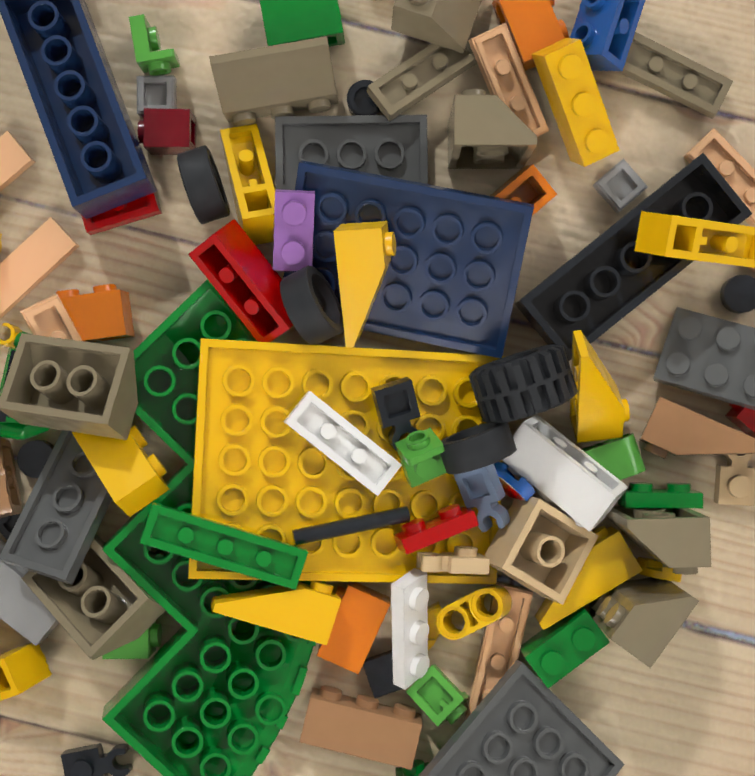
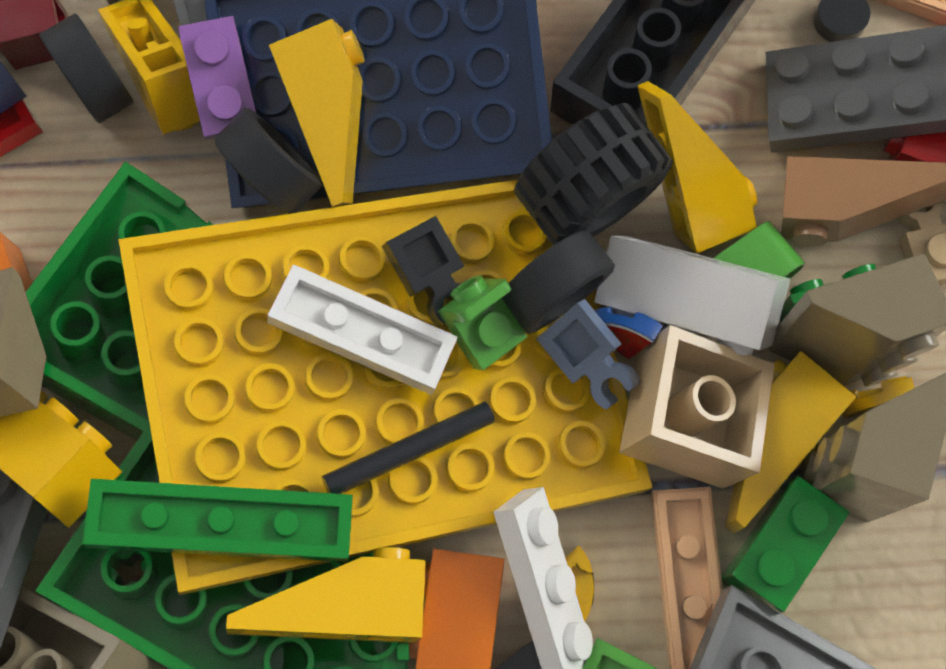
camera: 15 degrees left, 15 degrees down
(244, 281) = (167, 159): red brick -> none
(449, 522) = (553, 402): red plate -> none
(461, 561) = (589, 456): tan plate -> none
(474, 612) = (626, 526): yellow beam -> none

